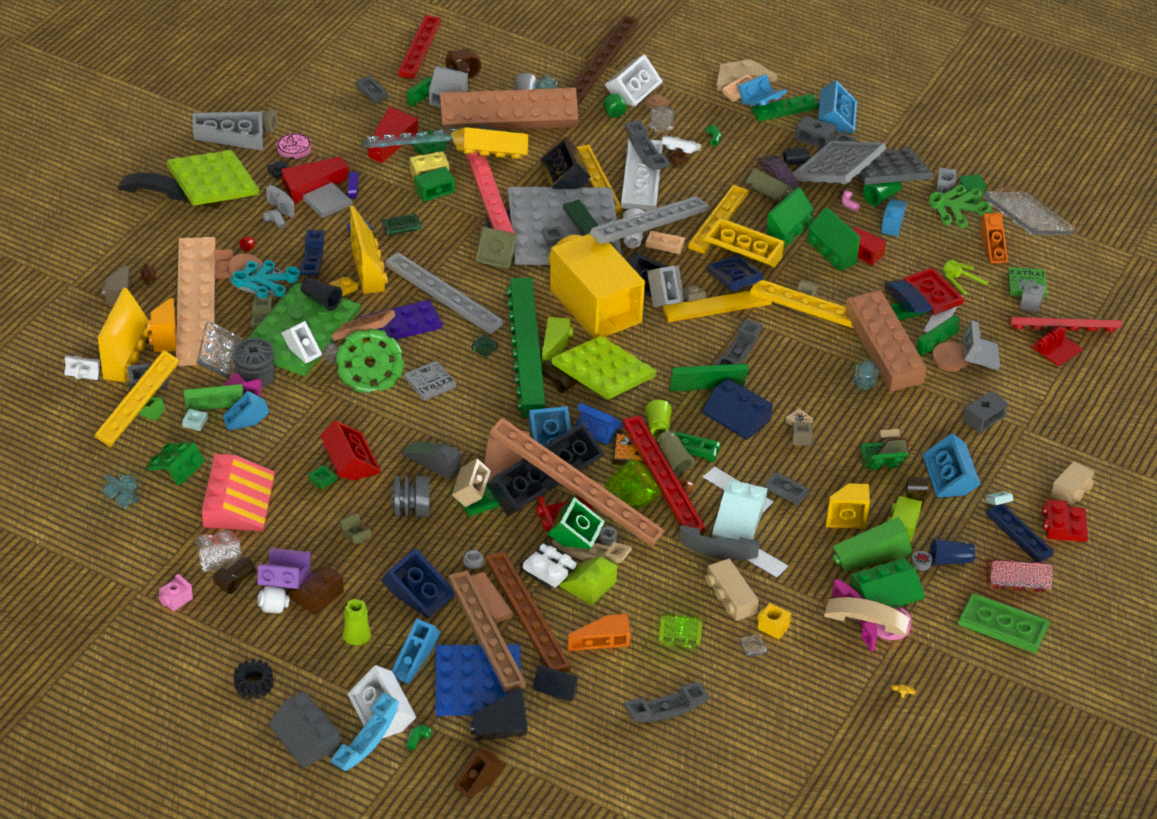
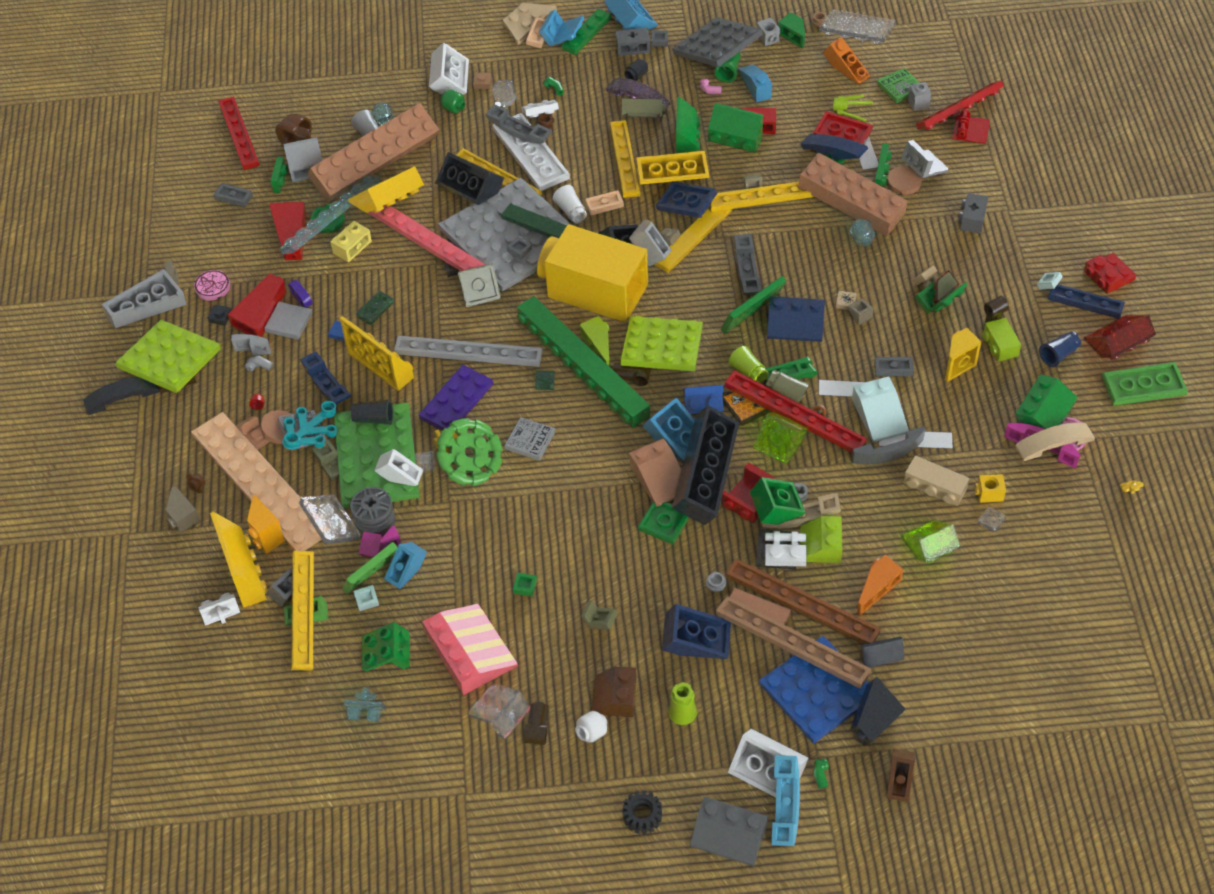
camera: 30 degrees left, 10 degrees up
(176, 593) = (503, 767): bright pink brick -> none
(285, 568) = (579, 692): medium lavender panel -> none
(346, 284) = (379, 392): yellow plate -> none
(349, 452) = (527, 547): red slope -> none
(373, 321) = (436, 420): nougat tile -> none
(411, 496) = (622, 556): dark grey wheel -> none
(415, 650) = (750, 698): dark azure slope -> none
(434, 184) = (369, 254): green brick -> none
(435, 456) = (598, 507): dark grey slope -> none
(471, 482) = (659, 514): tan brick -> none
(577, 482) = (746, 461): nougat plate -> none
(604, 56) = (402, 61): reddish brown plate -> none
(648, 220) = (589, 192): light grey plate -> none
(668, 706) = (981, 613): dark grey slope -> none
(839, 161) = (679, 57): light grey plate -> none
(874, 546) = (1005, 377): bright green slope -> none
(921, 560) = (1042, 366): light grey tile -> none
(938, 201) = (797, 47): bright green plant -> none
(951, 468) = (993, 275): dark azure slope -> none
(1073, 483) = (1088, 237): tan brick -> none

